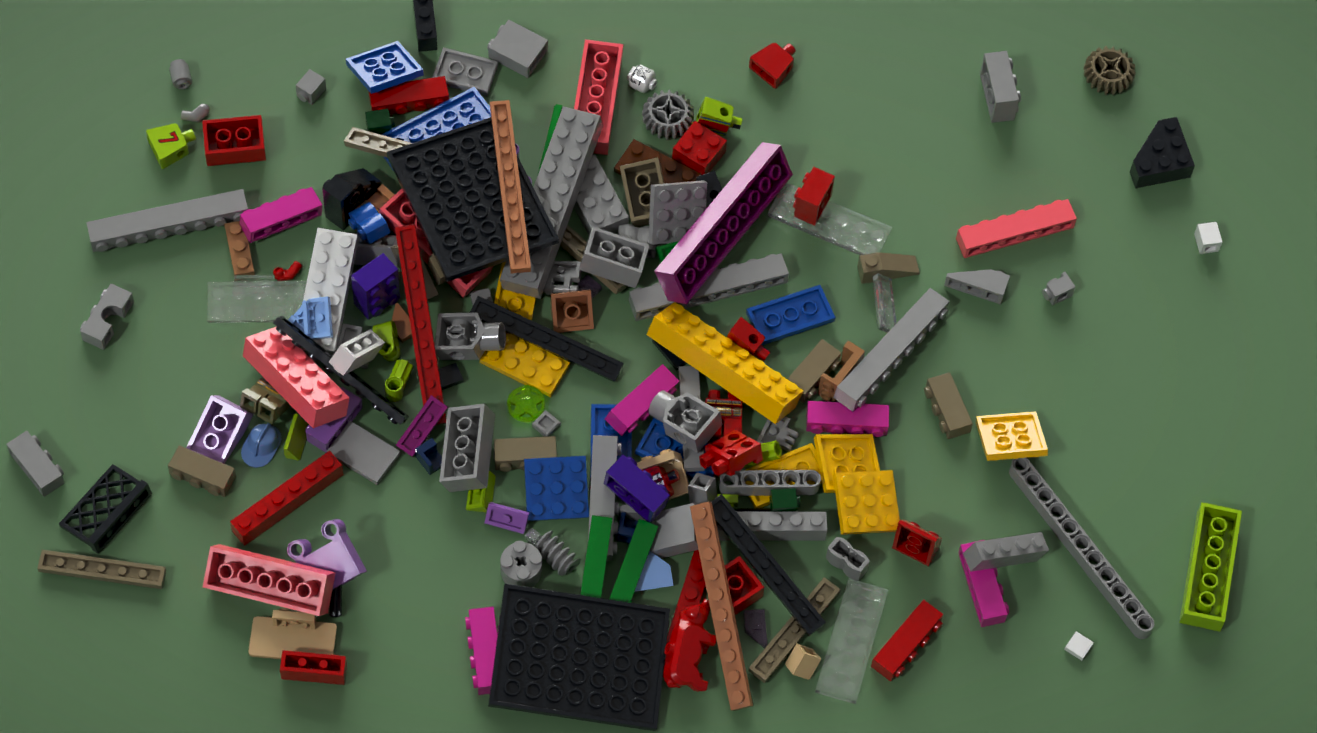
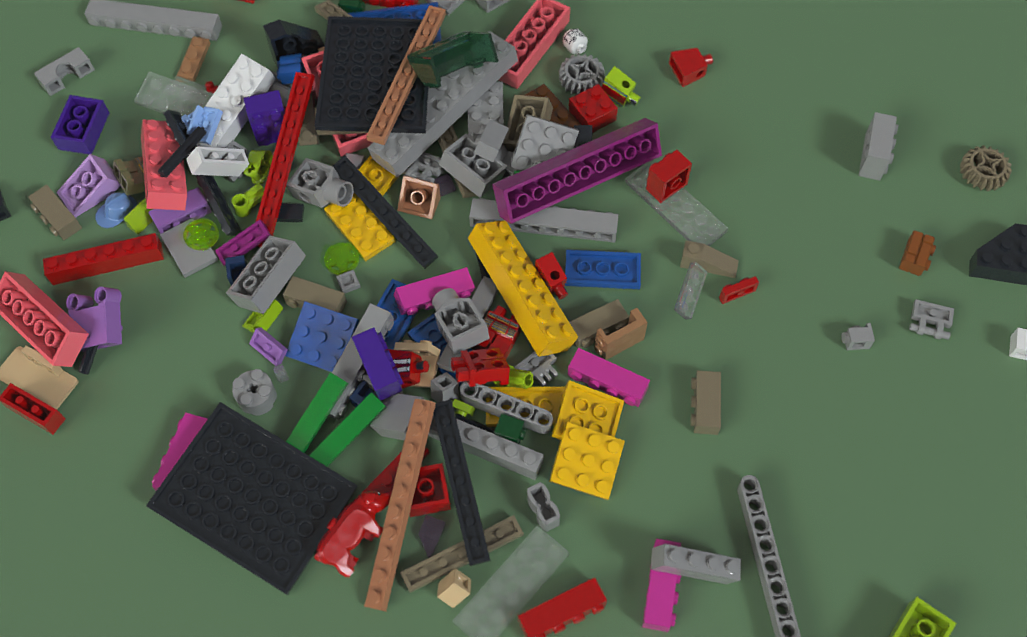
camera: 30 degrees right, 0 degrees up
(169, 368) = (80, 124): none -> dark purple brick
(280, 214) = (234, 43): dark pink brick -> none
(319, 364) = (184, 149): none -> black axle
(371, 434) = (201, 235): none -> clear neon green wheel
(544, 149) = (451, 55): none -> clear green windscreen
(555, 555) = (289, 394): light grey piece -> none
(622, 224) = (490, 140): none -> light grey brick
(655, 574) = (365, 447): light blue slope -> none
(891, 349) = (675, 332): light grey brick -> none
(916, 542) = (615, 516): red slope -> none
(933, 280) = (744, 287): none -> red plate
(981, 283) = (788, 306): light grey slope -> none
(1011, 436) = (753, 454): yellow plate -> none
(1016, 228) = (842, 269): coral brick -> none
(1079, 183) = (917, 253): none -> dark orange brick
(1114, 240) = (932, 314): none -> light grey plate

